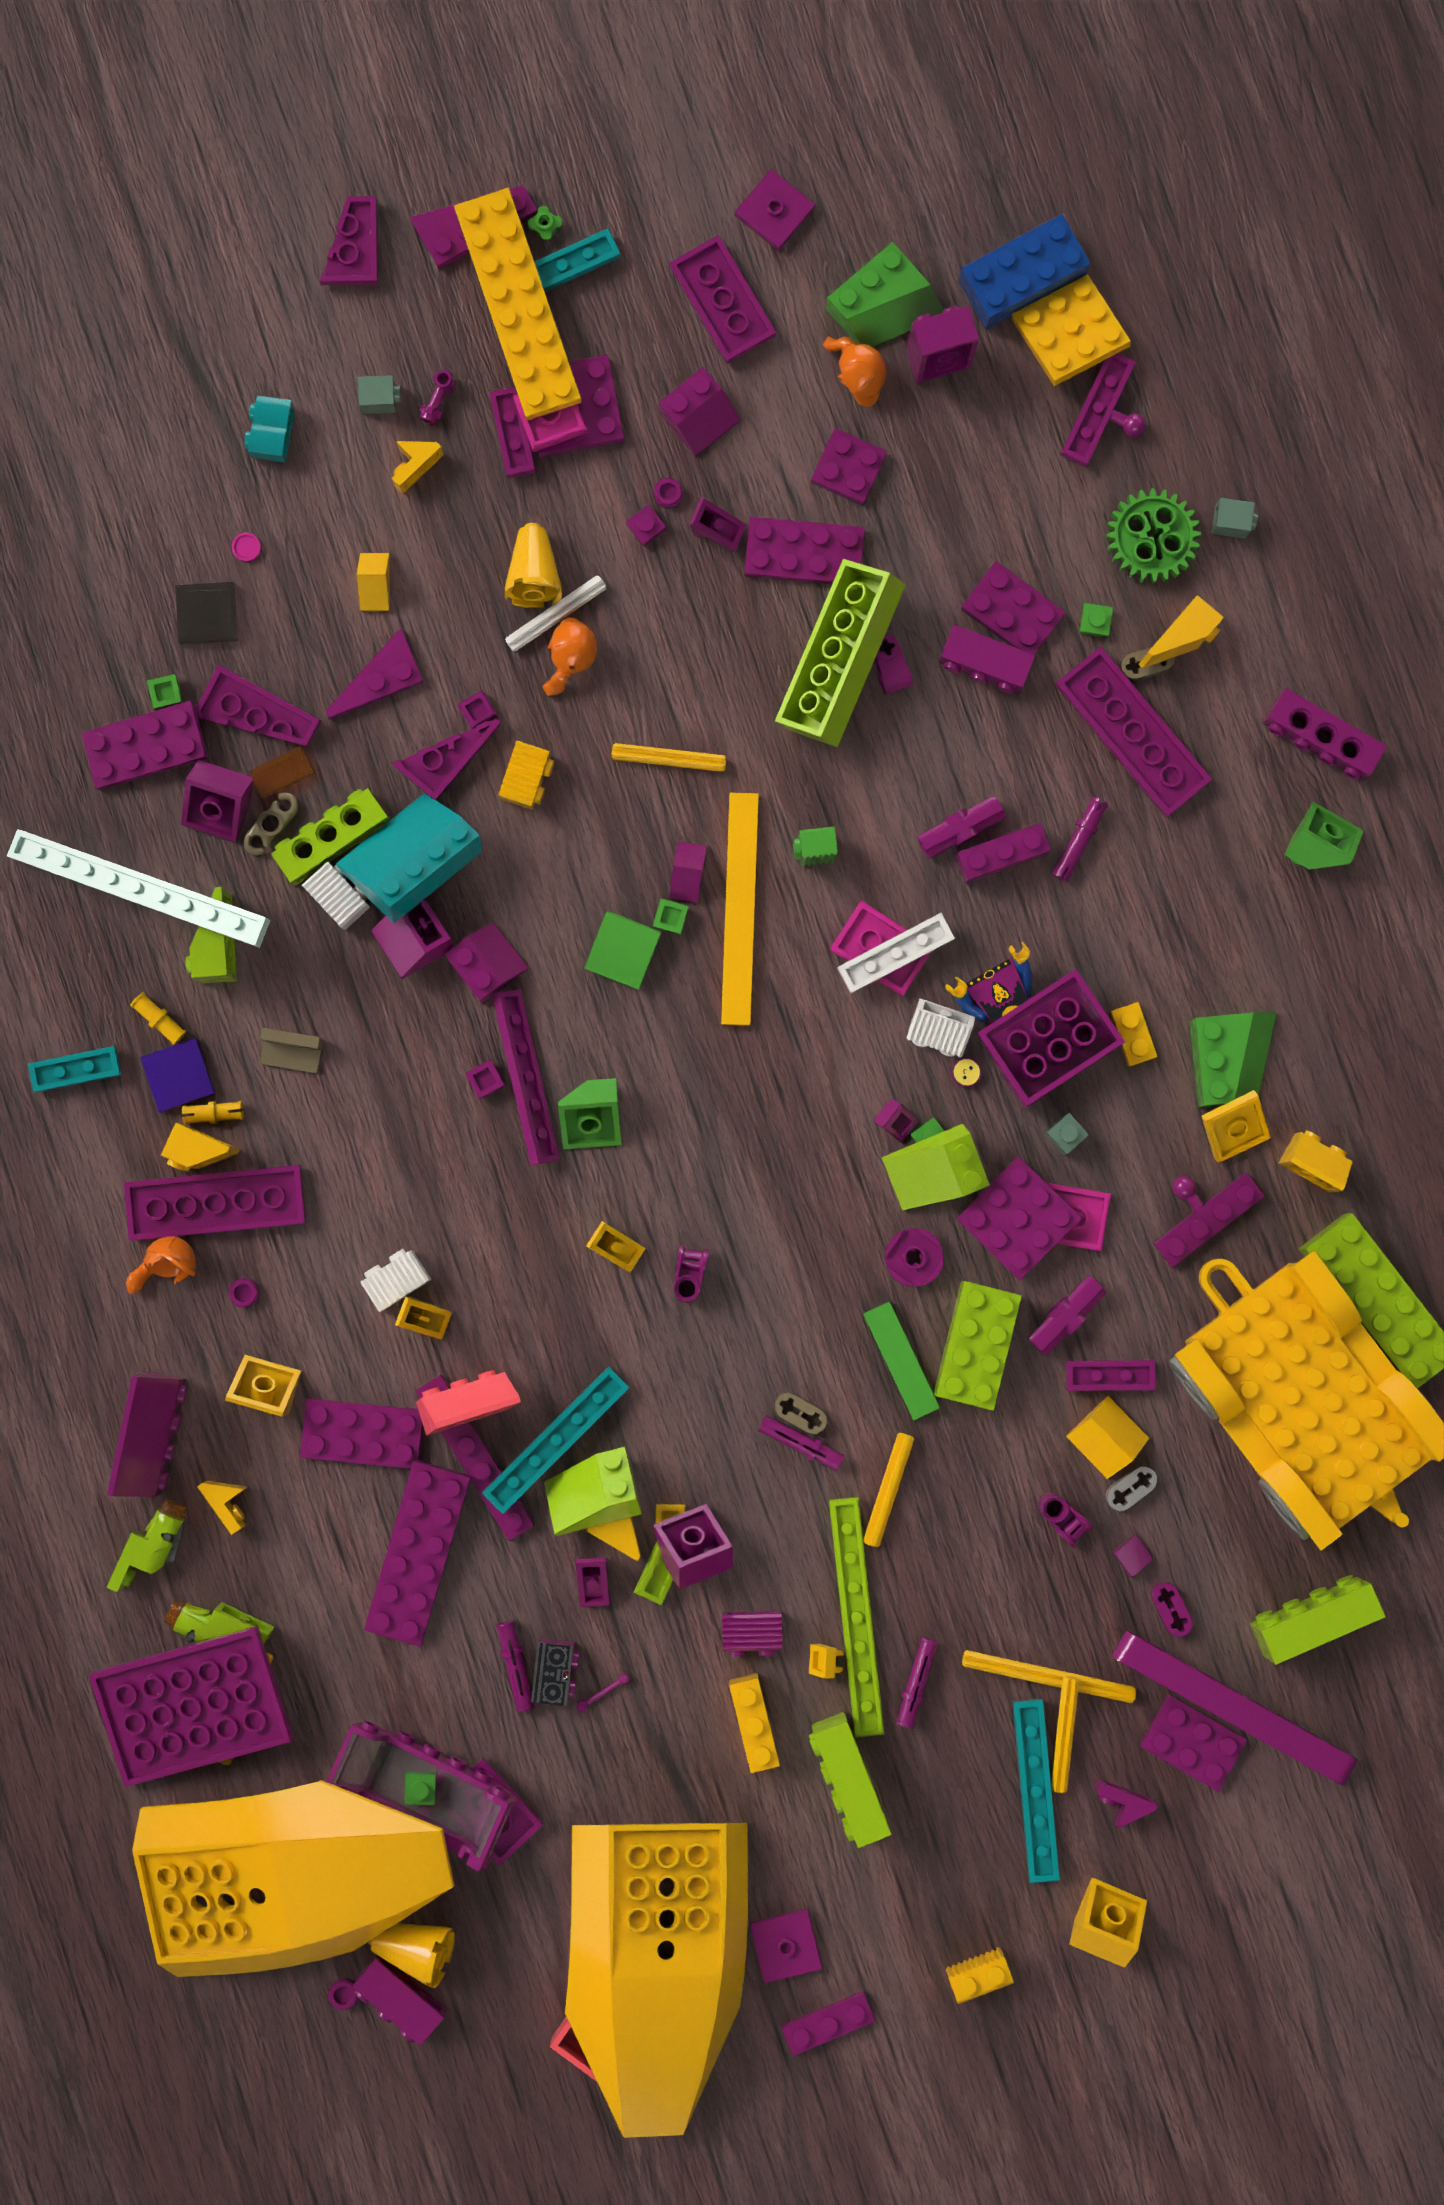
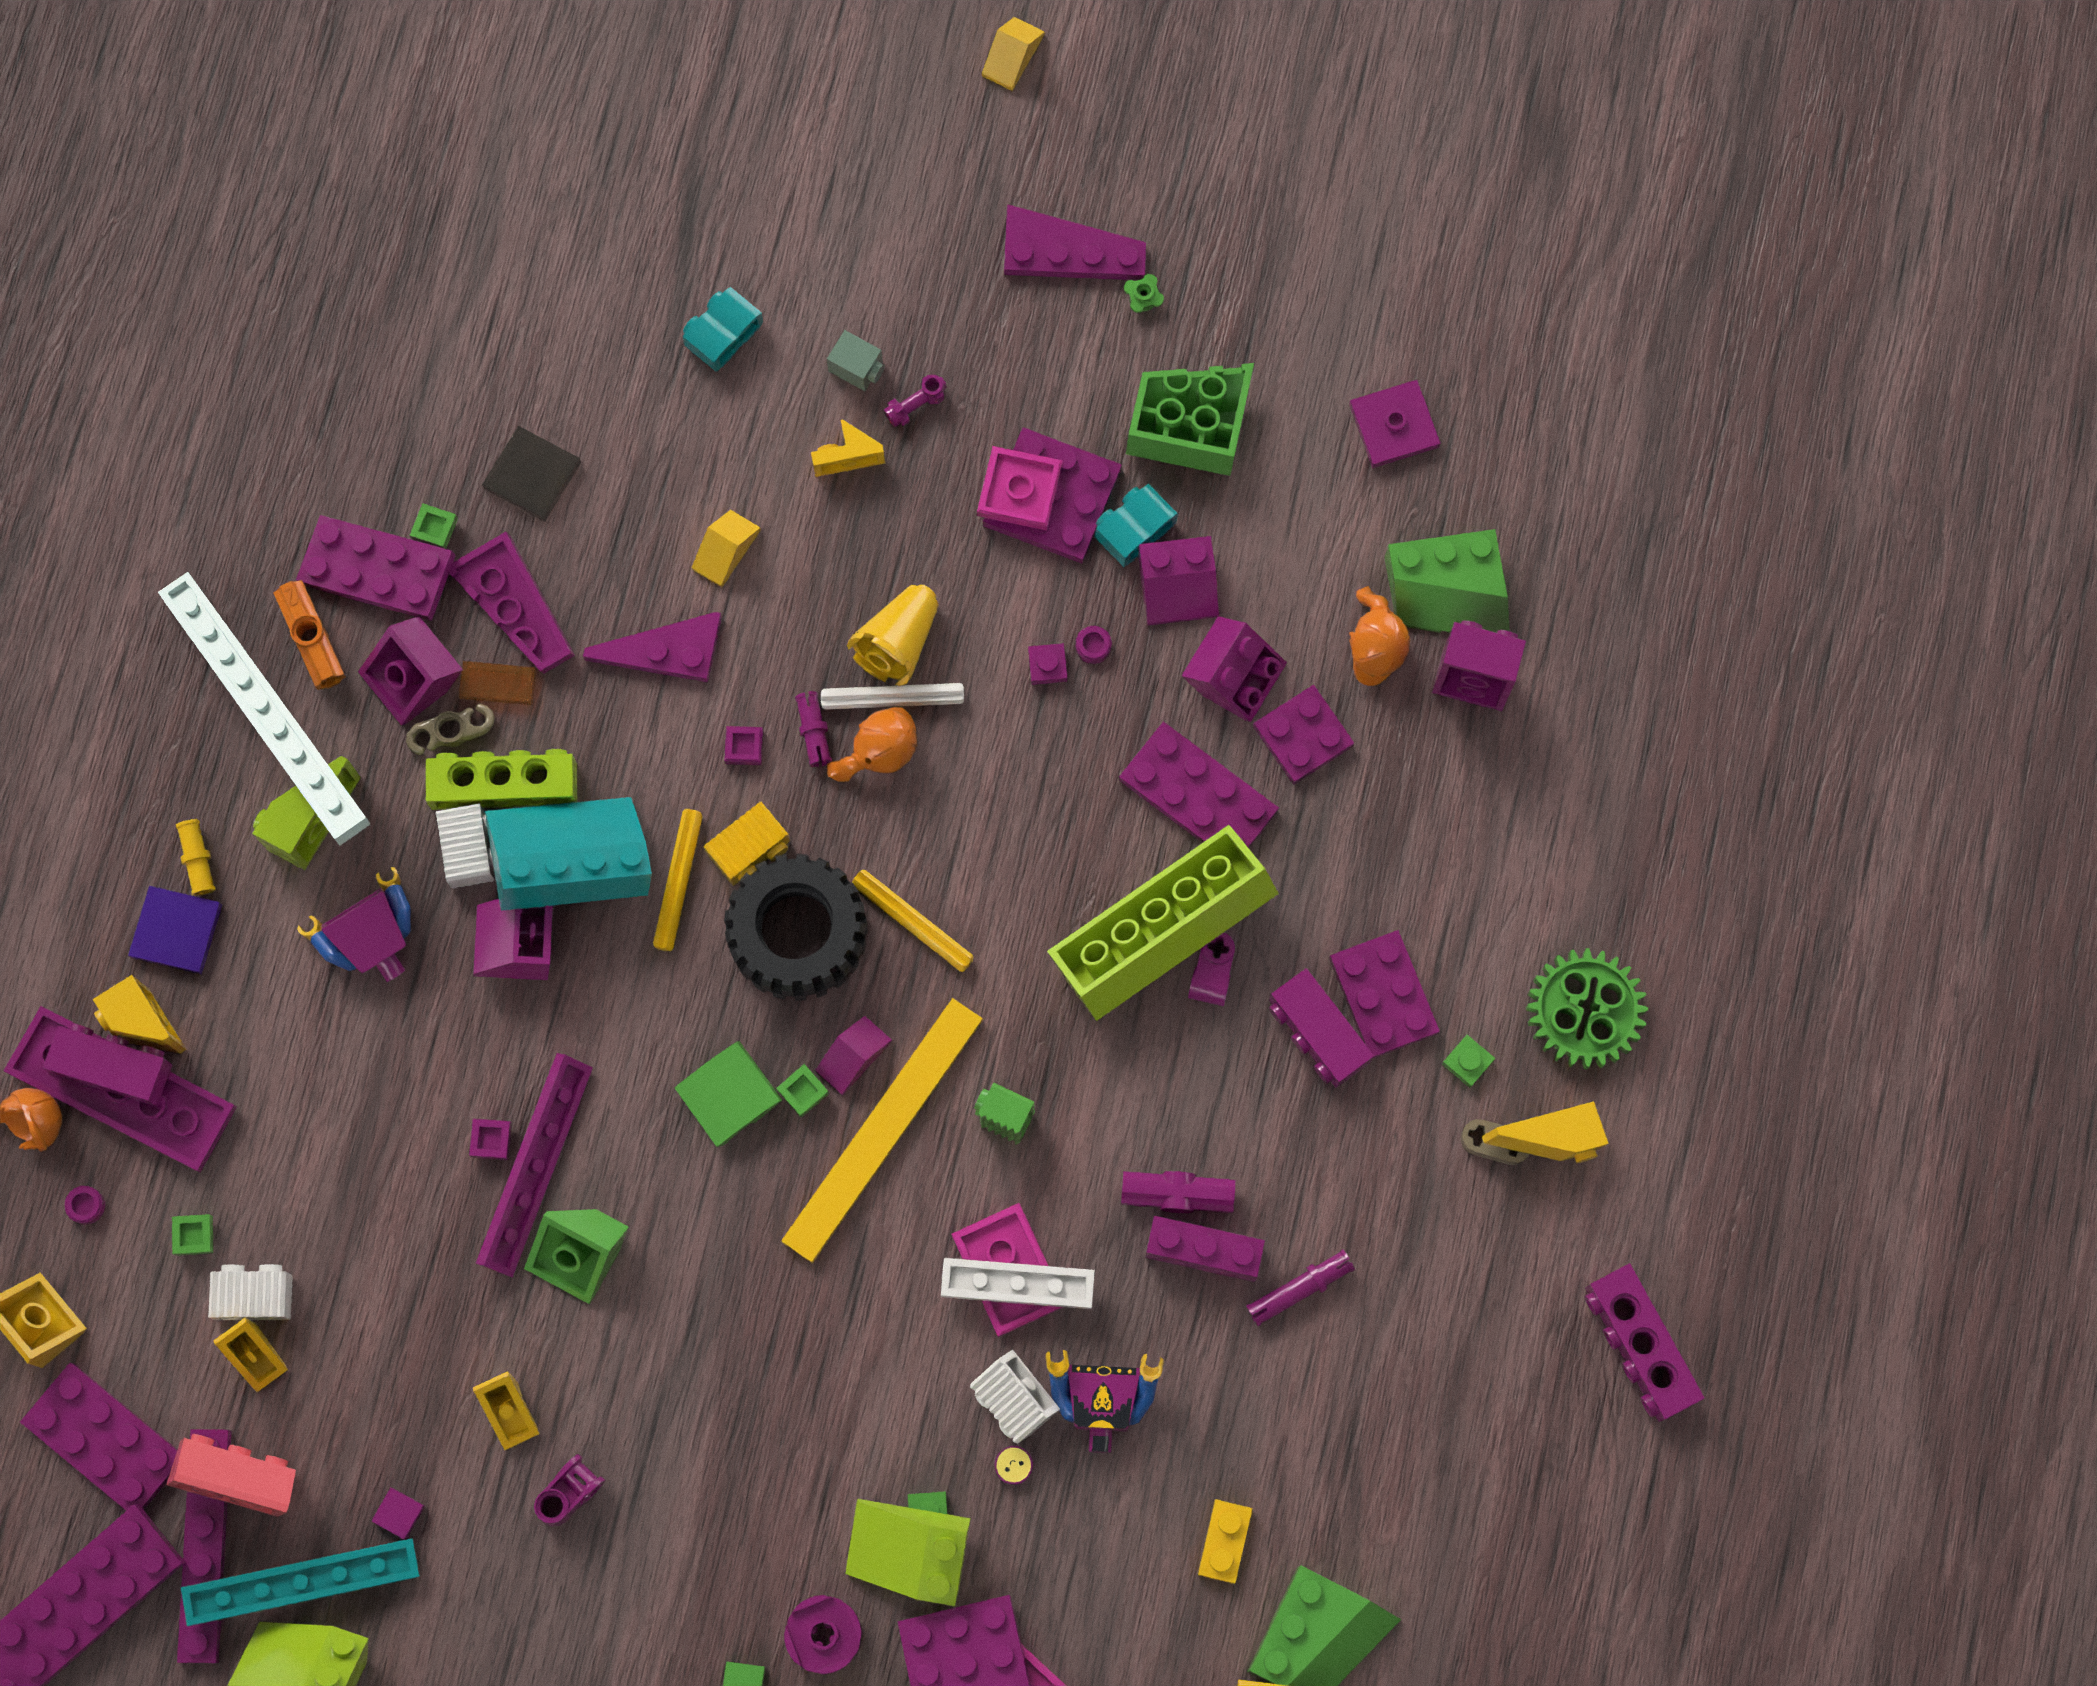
camera: 35 degrees right, 10 degrees down
(74, 1069) = (74, 855): teal plate -> none
(117, 810) = (300, 617): none -> orange piece
(198, 1191) = (108, 1064): none -> magenta brick
(212, 1112) = (183, 992): yellow pin -> none
(246, 547) = (618, 432): dark pink piece -> none
(291, 1050) = (309, 979): dark tan panel -> none
(309, 995) = (366, 931): none -> magenta torso
(330, 1266) = (192, 1235): none -> bright green plate
(340, 104) = (1011, 52): none -> yellow slope
(355, 246) = (933, 200): magenta wing -> none
(441, 764) = (665, 778): magenta wing -> none
(486, 962) = (574, 1015): magenta slope -> none
(493, 829) = (677, 880): none -> yellow axle
(511, 434) = (965, 488): magenta plate -> none
(517, 304) = (1058, 357): yellow plate -> none
(517, 669) = (813, 729): none -> magenta pin
(577, 259) = (1149, 349): teal plate -> none
(587, 1357) = (398, 1513): none -> magenta tile
(592, 771) = (785, 880): none -> black tyre
(635, 291) = (1190, 417): none -> bright green wedge
(644, 391) = (1139, 521): none -> teal brick
(716, 524) = (1120, 708): magenta slope -> none
(722, 299) = (1279, 481): magenta plate -> none
(774, 449) = (1234, 668): none -> magenta slope
(896, 1120) = (903, 1469): magenta slope -> none
(1023, 271) = (1620, 645): blue brick -> none
(1050, 1039) = (1126, 1486): magenta slope -> none
(1066, 1134) = (1077, 1604): sand green brick -> none
(1071, 330) = (1633, 737): yellow plate -> none
(1100, 408) = (1613, 839): magenta plate -> none
(1133, 732) = (1433, 1207): magenta plate -> none
(1234, 518) = (1688, 1044): sand green brick -> none
(1323, 840) = (1571, 1459): bright green slope -> none

